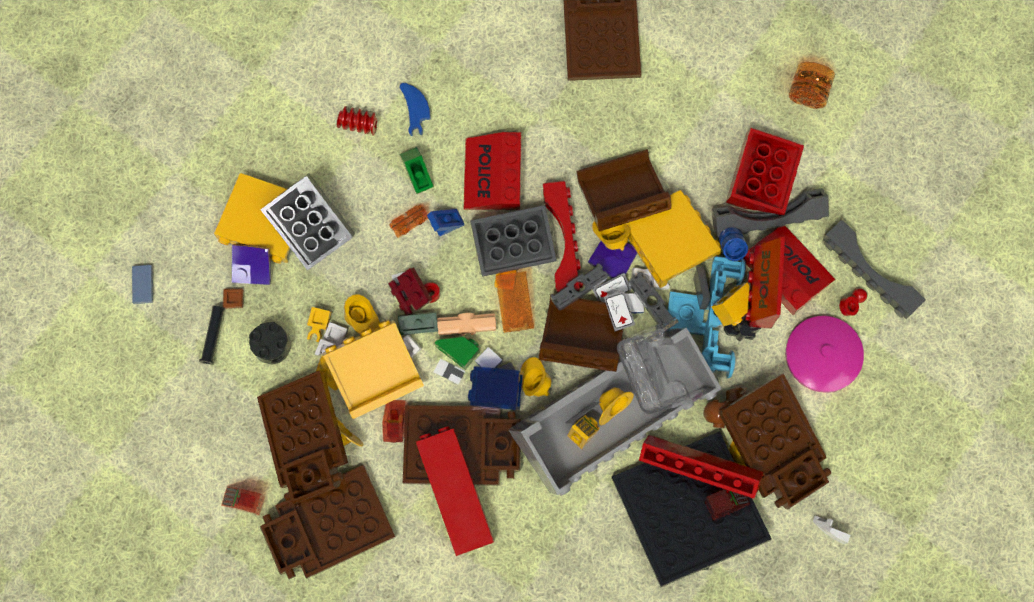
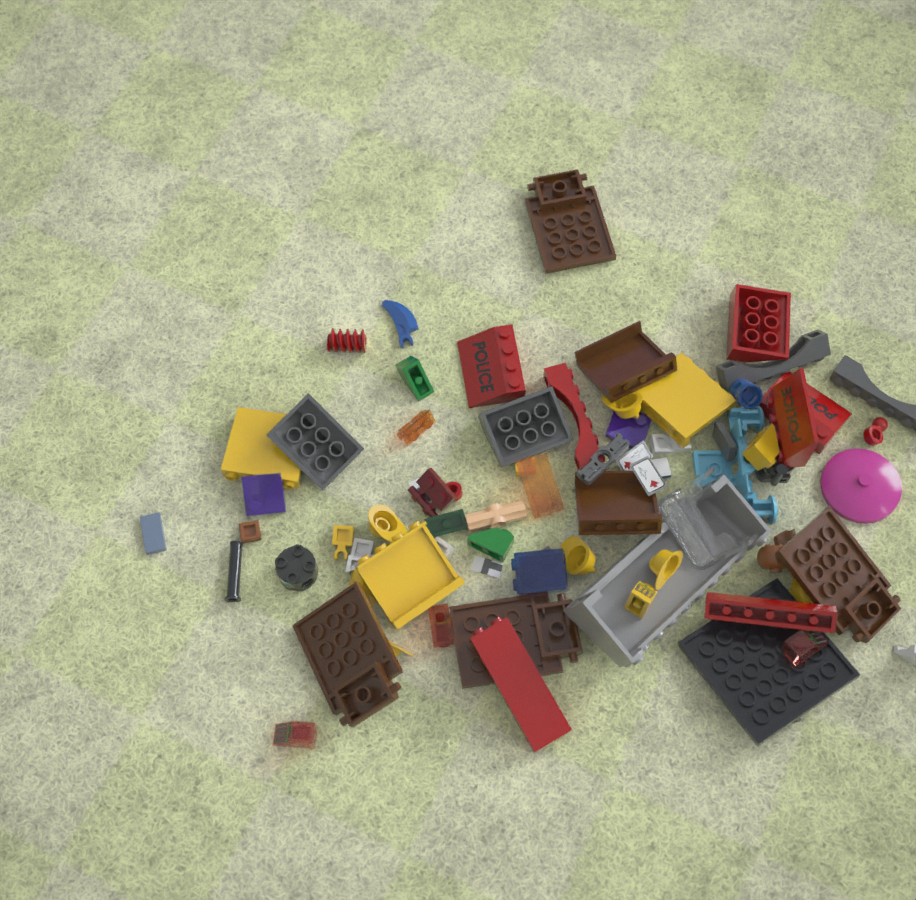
camera: 10 degrees left, 10 degrees down
(327, 527) = (391, 747): reddish brown plate -> none
(445, 221) = (453, 420): blue slope -> none
(488, 359) = (524, 545): white tile -> none
(584, 411) = (635, 580): light grey sticker -> none
(643, 291) = (667, 453): dark grey piece -> none
(812, 85) = (783, 238): clear orange wheel -> none

